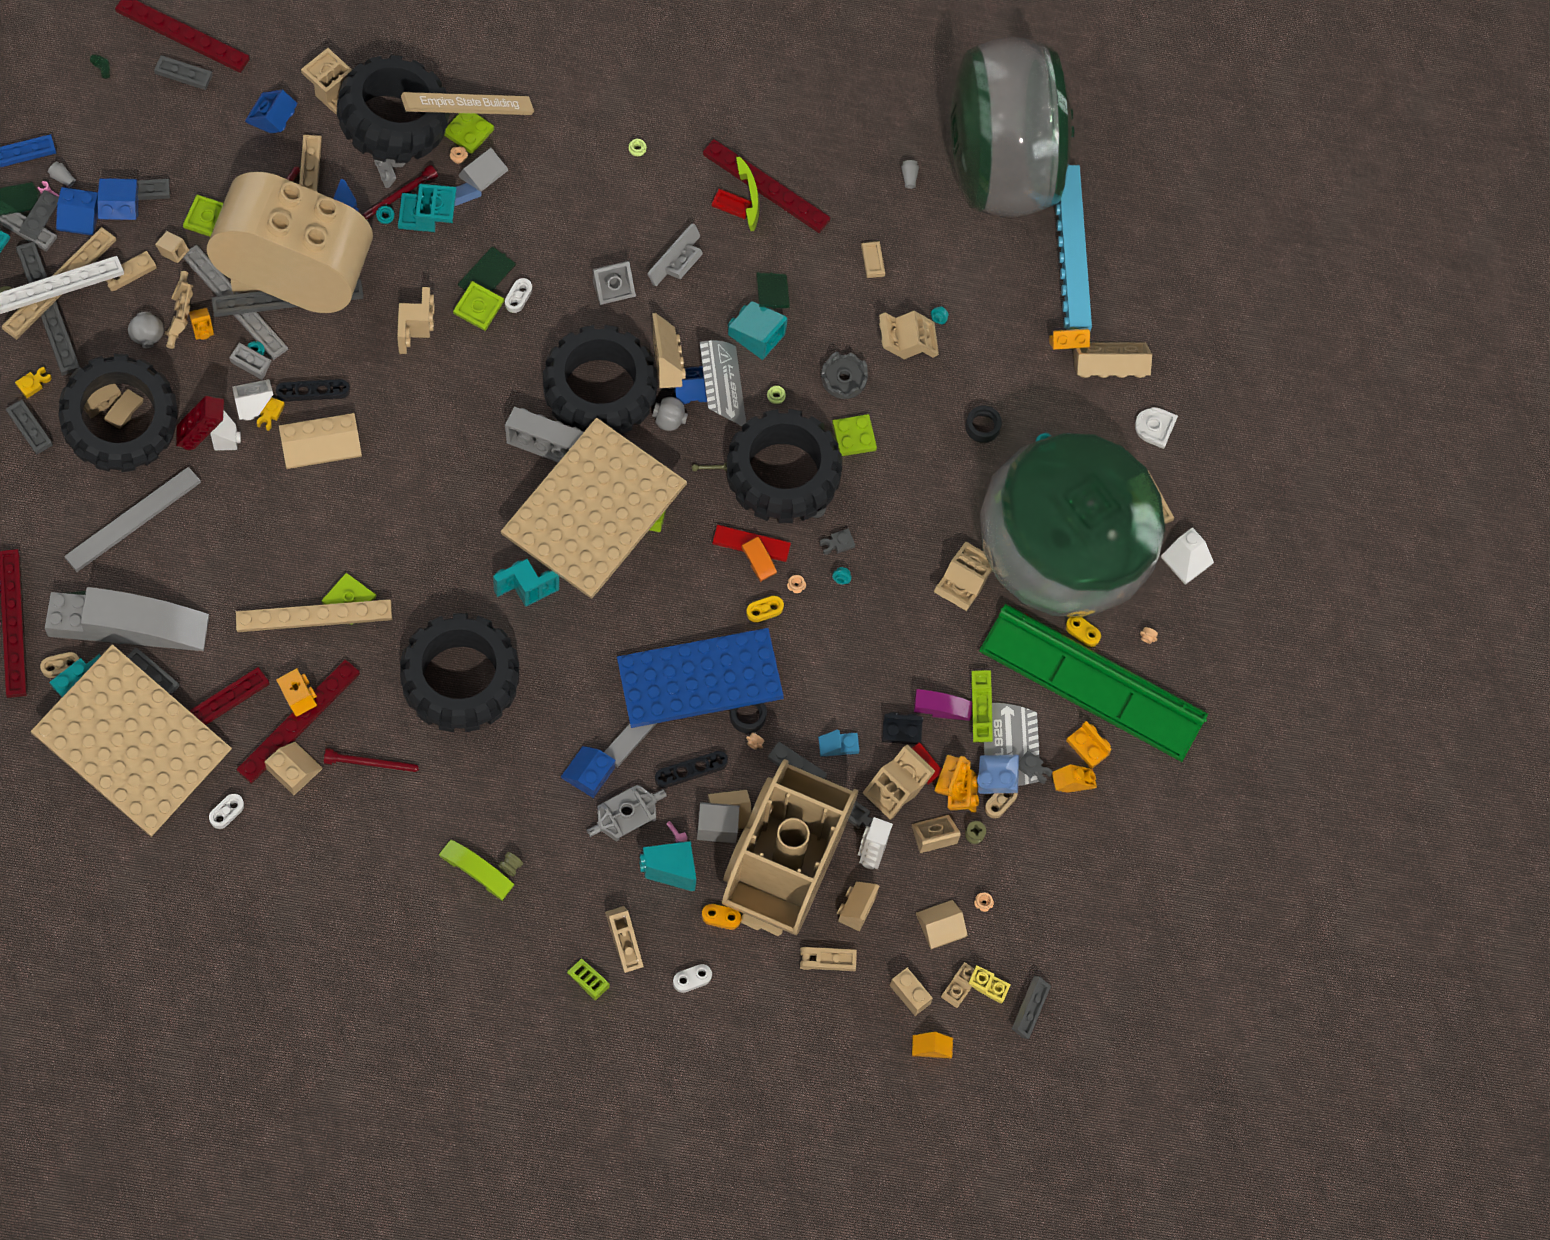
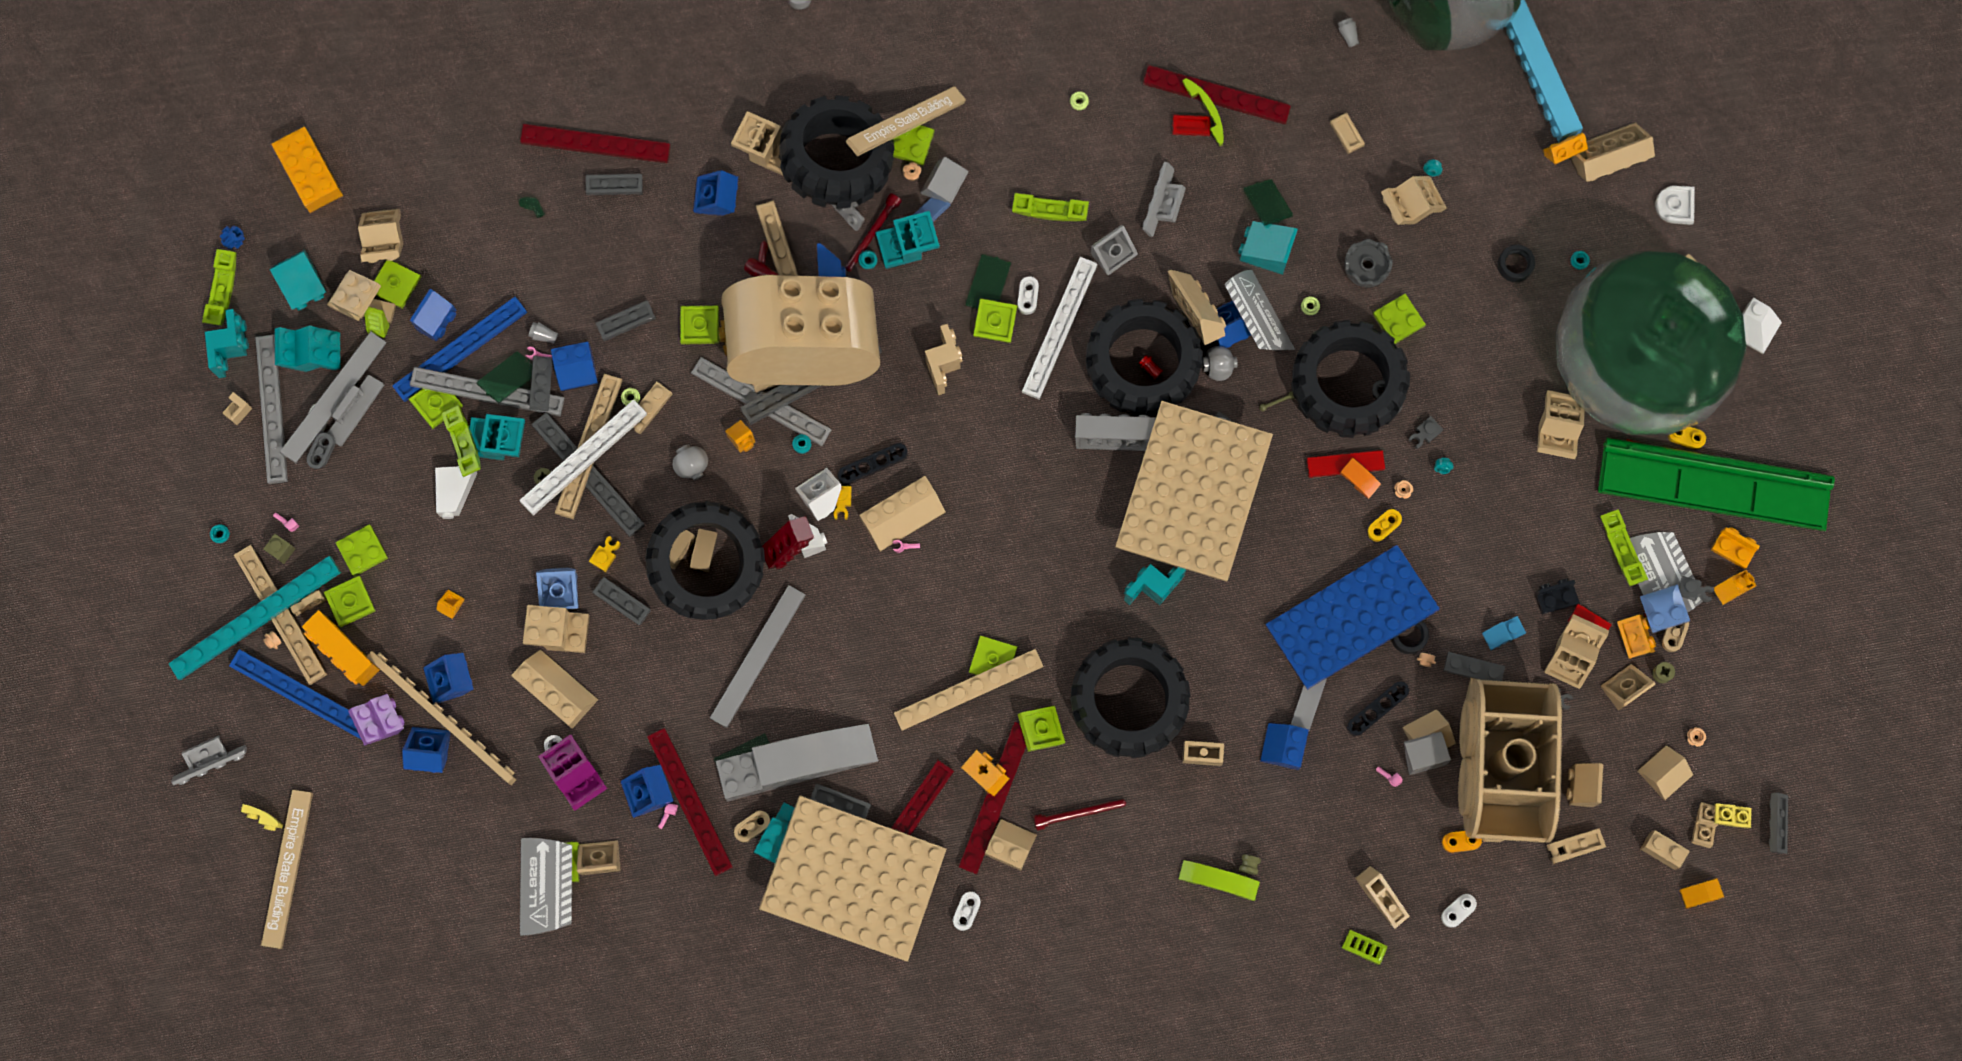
camera: 10 degrees left, 10 degrees up
(116, 251) = (630, 391): none -> yellowish green plate
(118, 199) = (609, 340): blue slope -> none
(172, 247) = (680, 369): tan brick -> none
(182, 295) = (719, 443): tan plate -> none
(250, 361) = (802, 457): light grey slope -> none
(308, 471) = (904, 546): none -> bright pink hand
(366, 673) = (1041, 728): none -> lime plate
(508, 747) = (1203, 753): none -> tan brick
(535, 333) = (1059, 328): none -> white plate
(569, 229) = (1050, 209): none -> lime slope
(604, 394) = (1150, 367): none -> red pin
(615, 823) = (1327, 787): light grey plate -> none
(670, 865) = (1399, 812): teal slope -> none
(874, 843) = (1583, 724): white brick -> none
(942, 705) = (1585, 559): magenta slope -> none
(952, 776) = (1624, 627): light orange bracket -> none
(1148, 635) = (1749, 418): light nougat plate -> none

